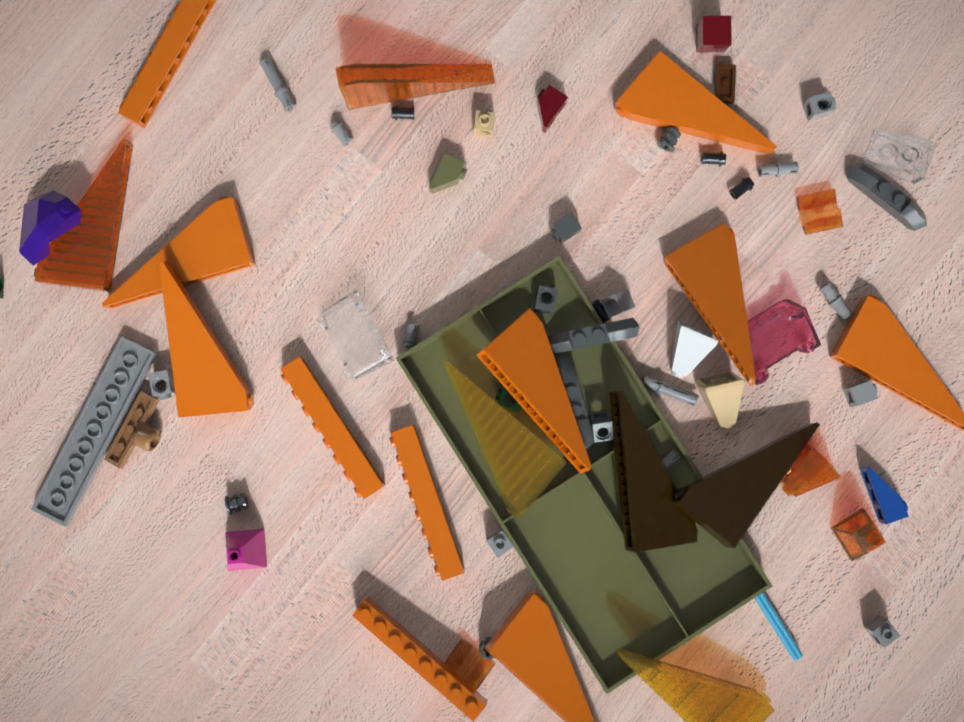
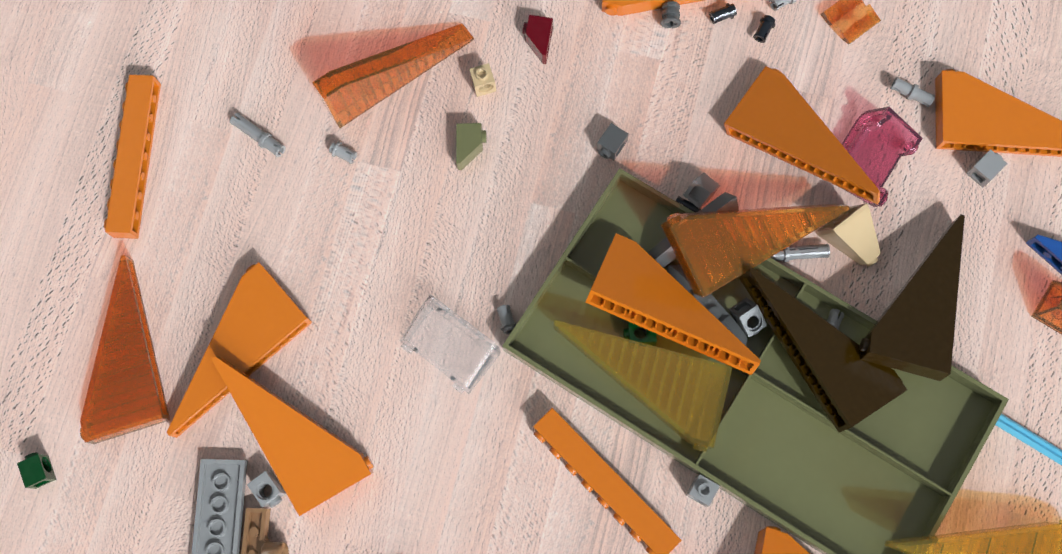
camera: 15 degrees left, 10 degrees down
(43, 222) = (72, 373): dark purple brick -> none
(332, 426) = (469, 451): orange brick -> none
(402, 113) = (396, 106): black pin -> none
(543, 307) = (626, 227): dark grey brick -> none
(612, 361) = (728, 243): none -> clear orange slope
(689, 348) = (795, 191): white slope -> none
(808, 472) = (980, 268): clear orange slope -> none

